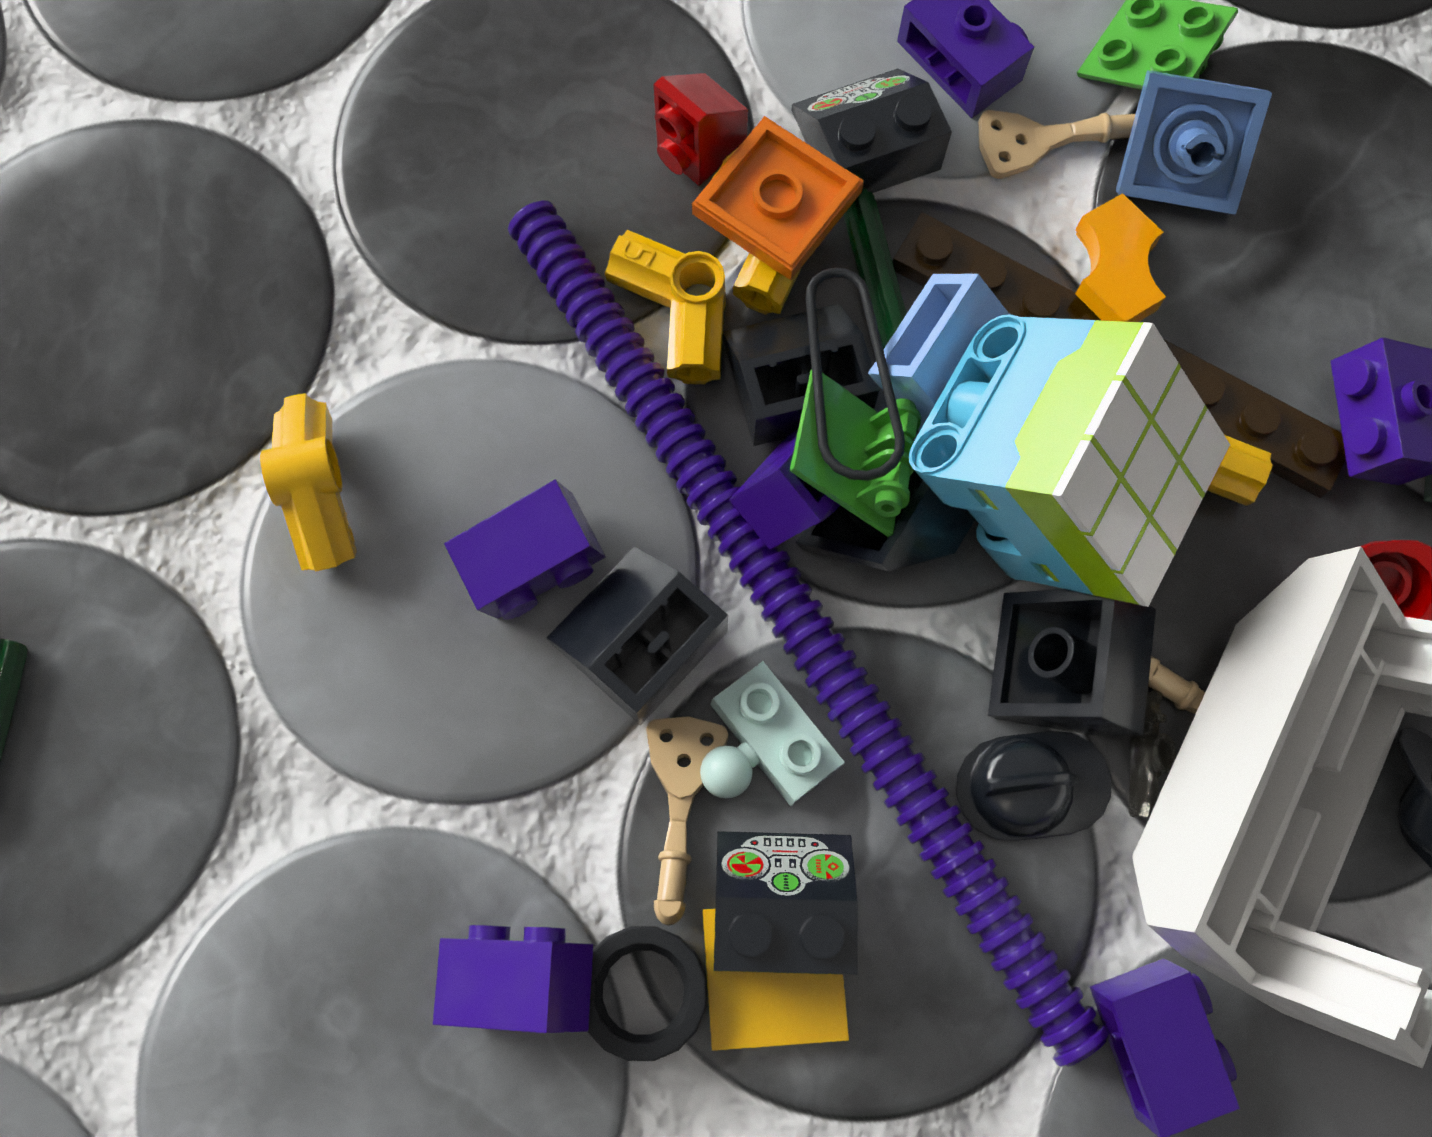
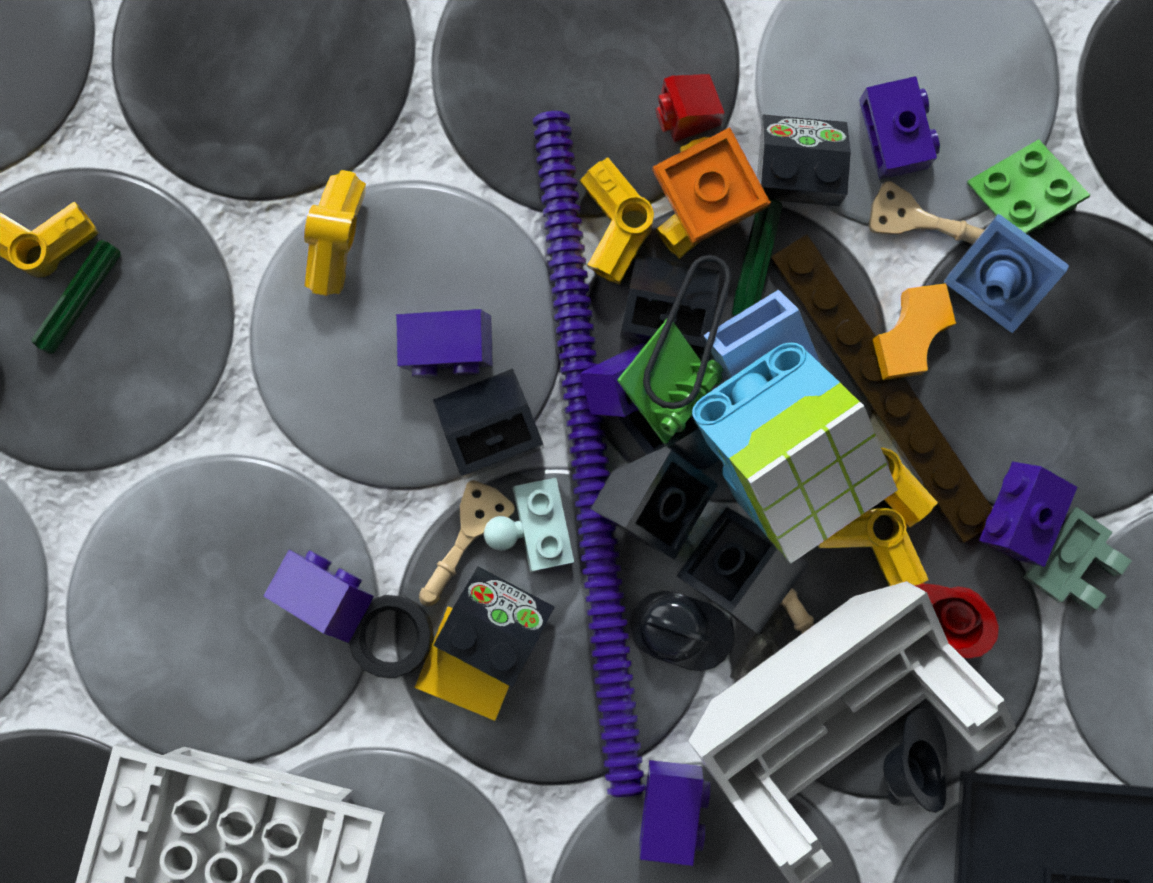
camera: 25 degrees right, 10 degrees up
(914, 619) = (656, 499): none -> black slope
(1252, 545) = (895, 554): none -> yellow piece

